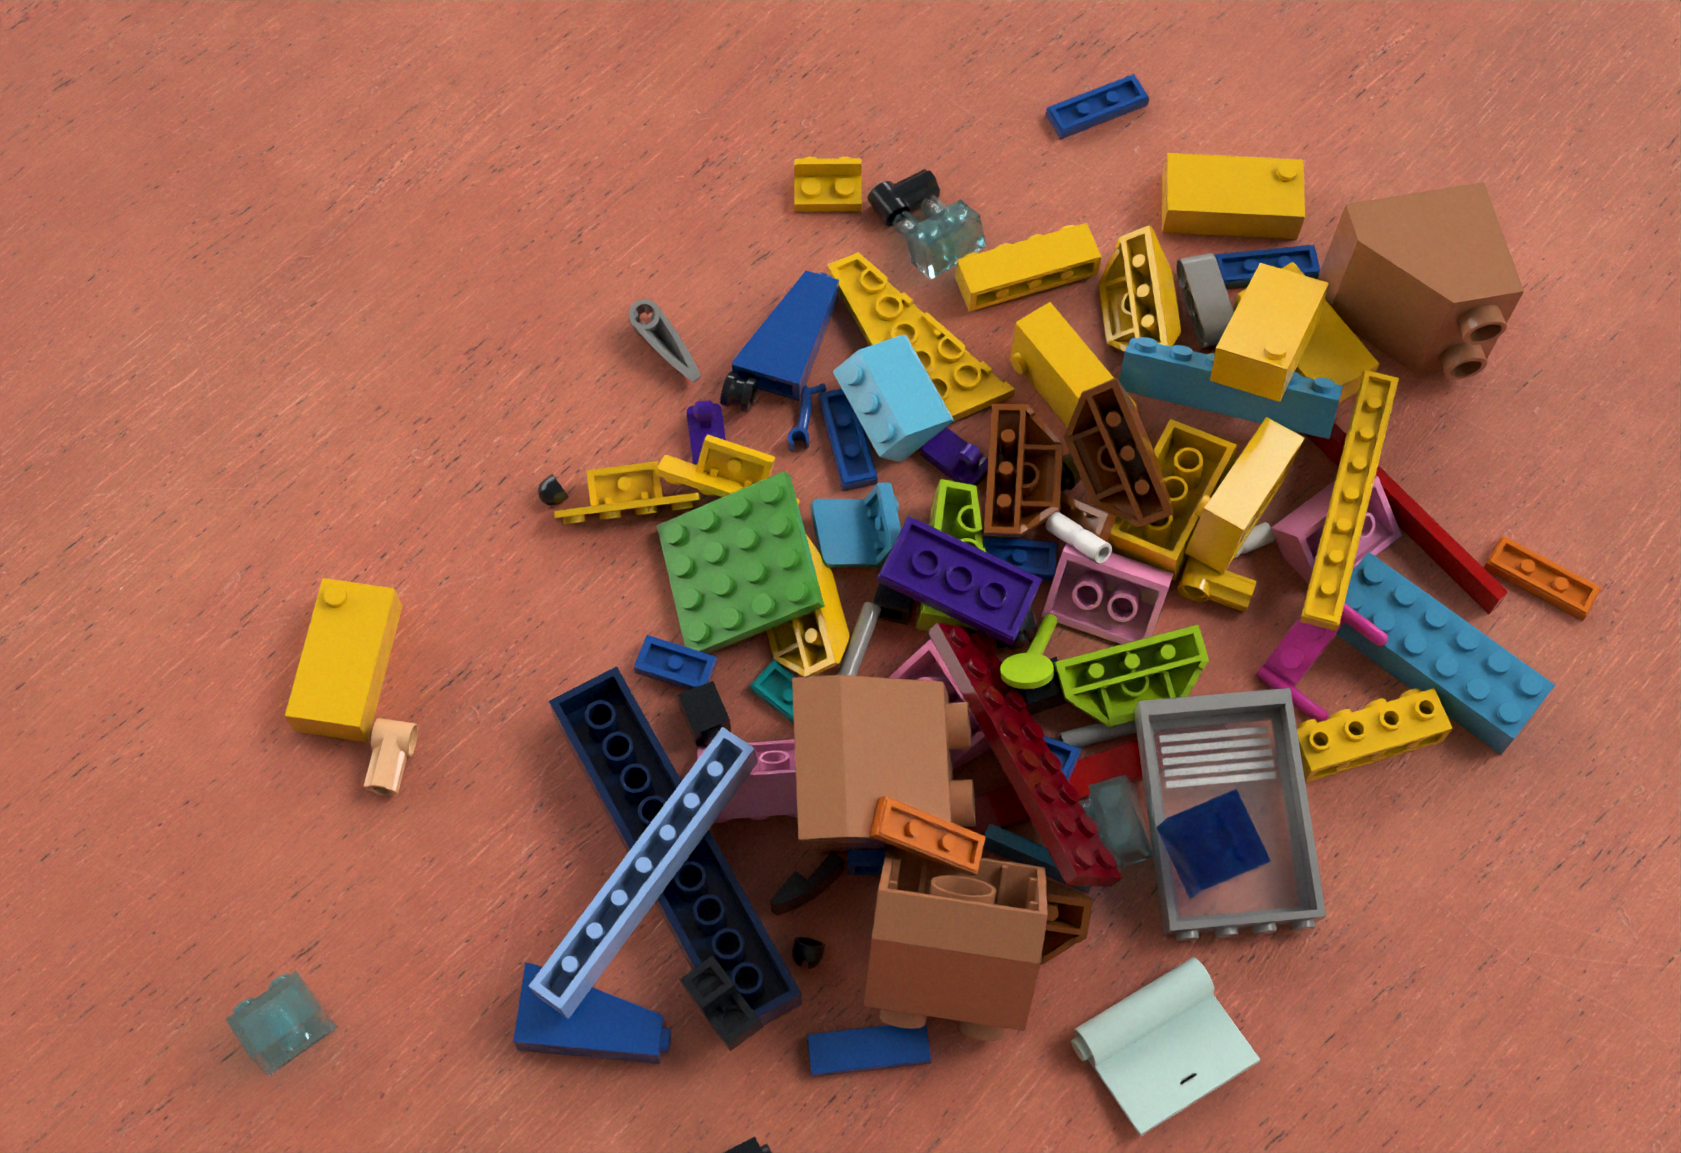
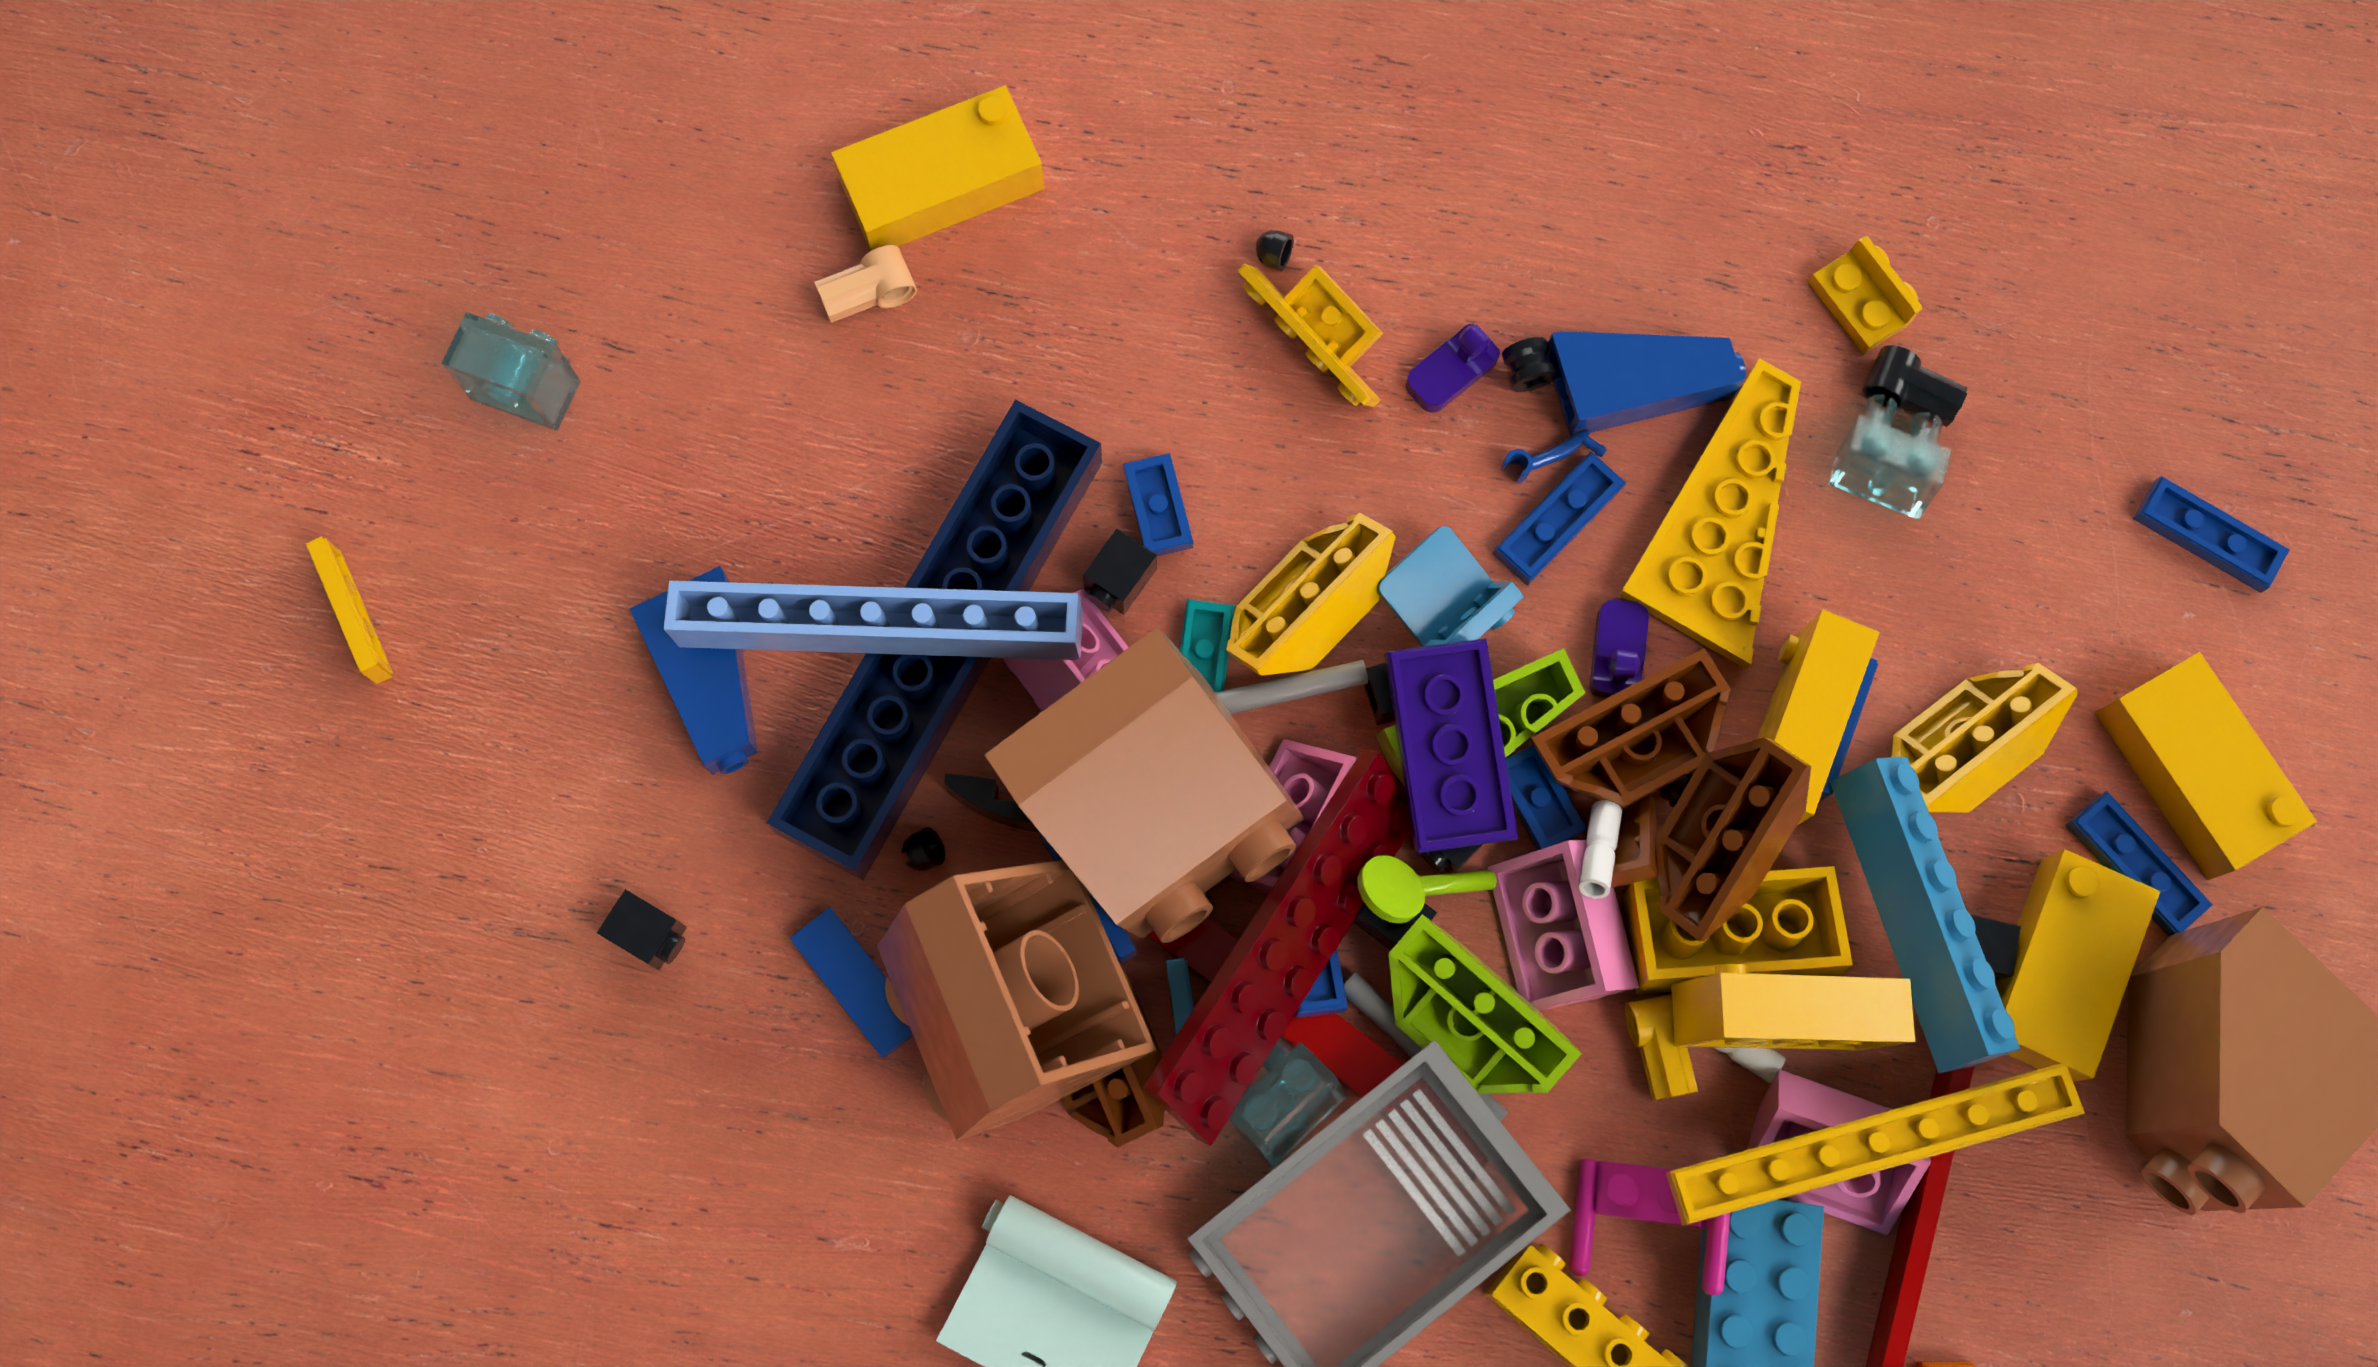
camera: 55 degrees right, 10 degrees up
(663, 338) = (1535, 240): light grey piece -> none
(720, 468) = (1417, 420): yellow bracket -> none
(721, 1003) = (787, 793): black slope -> none
(740, 565) = (1313, 497): bright green plate -> none
(893, 397) = (1636, 533): medium azure slope -> none
(927, 836) = (1090, 895): orange tile -> none
(1027, 266) = (1924, 582): yellow brick -> none
(1205, 297) = (2036, 818): light grey beam -> none
(1213, 843) = (1312, 1230): clear blue brick -> none
(1269, 332) = (2022, 915): yellow brick -> none

